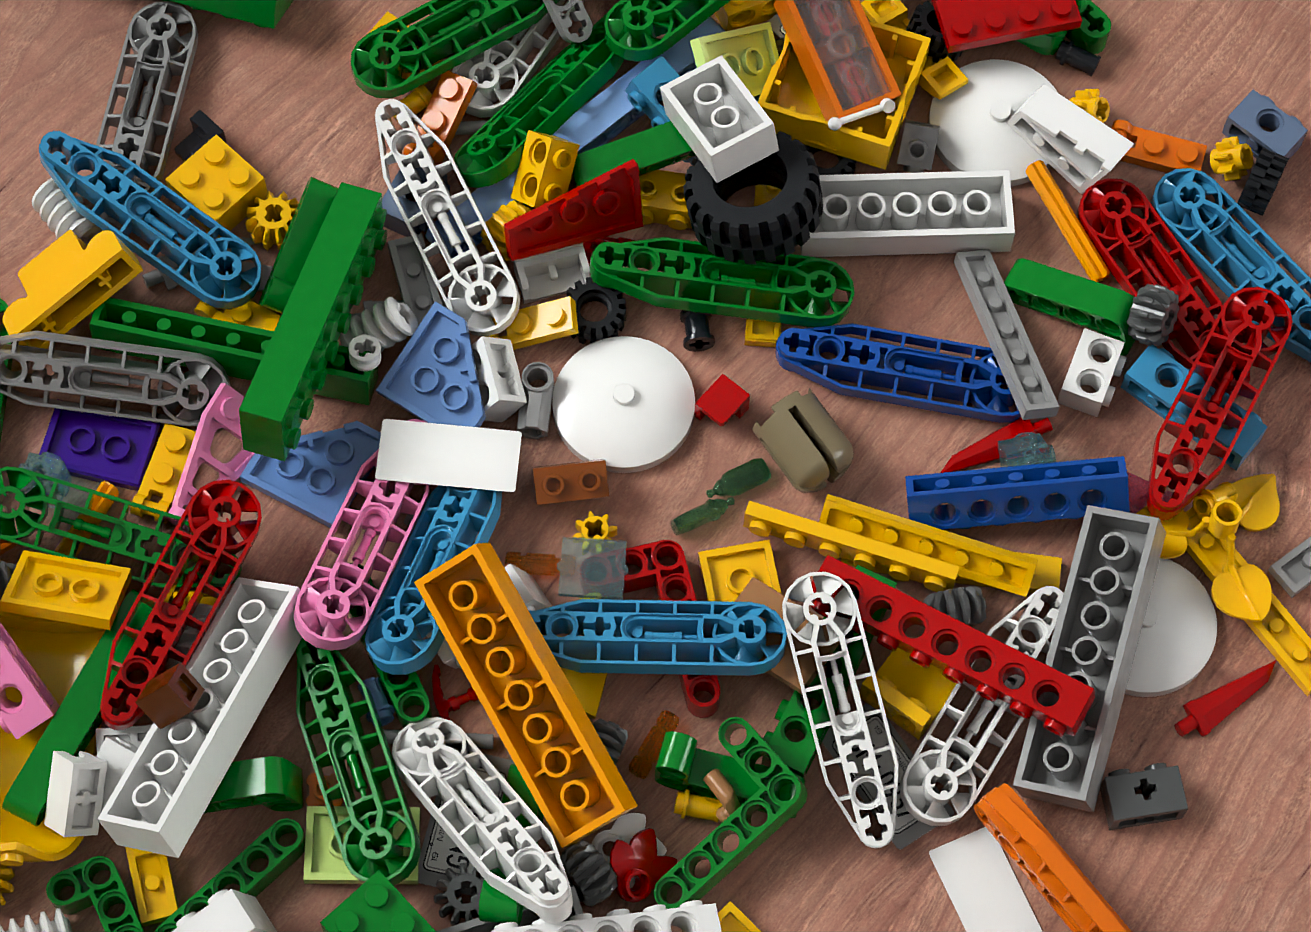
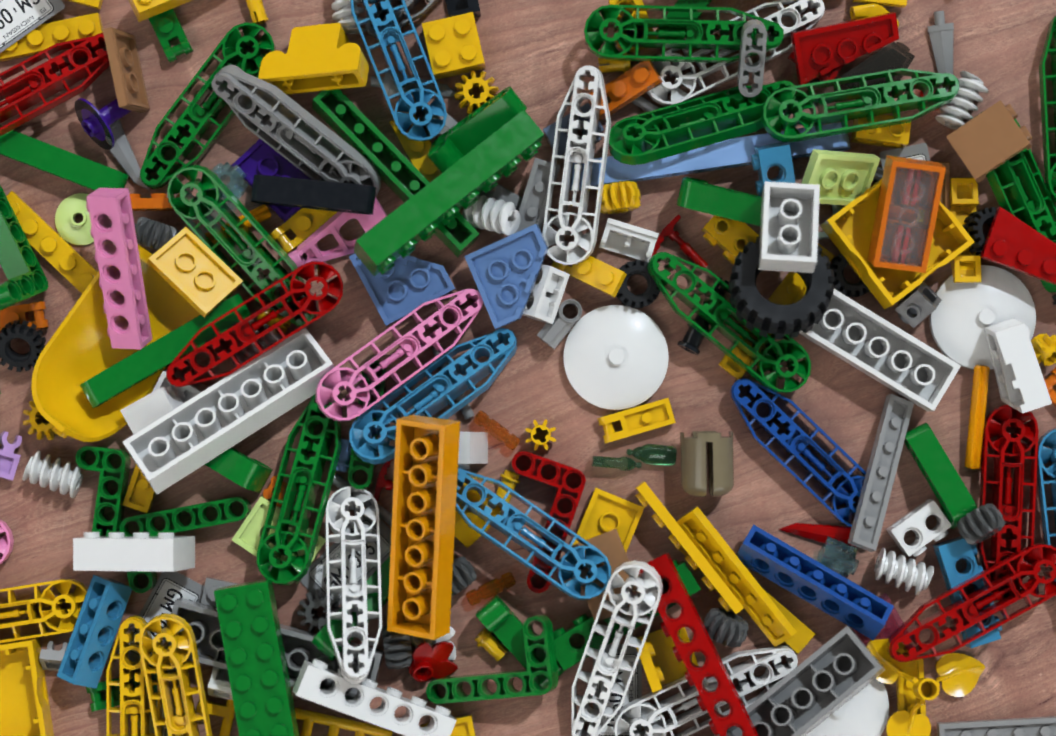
camera: 35 degrees right, 20 degrees up
(75, 794) = (123, 409): white hinge -> none
(154, 425) = (313, 194): none -> black beam
(170, 696) = (210, 391): reddish brown panel -> none
(359, 345) = (471, 222): white bush -> none
(448, 455) = (479, 332): white sticker -> none
(544, 169) = (662, 177): yellow brick -> none
(570, 481) = (546, 392): dark orange brick -> none
(583, 214) = (669, 223): red wing -> none
(592, 568) = (522, 460): clear light blue piece -> none
(693, 456) = (637, 420): none -> yellow plate
(722, 401) = (674, 400): red panel -> none
(724, 792) = (507, 662): medium nougat arm -> none
(886, 105) = (910, 274): white hinge -> none
(1107, 427) = (903, 571): none -> white piece
(1205, 501) = (939, 662): yellow pin -> none

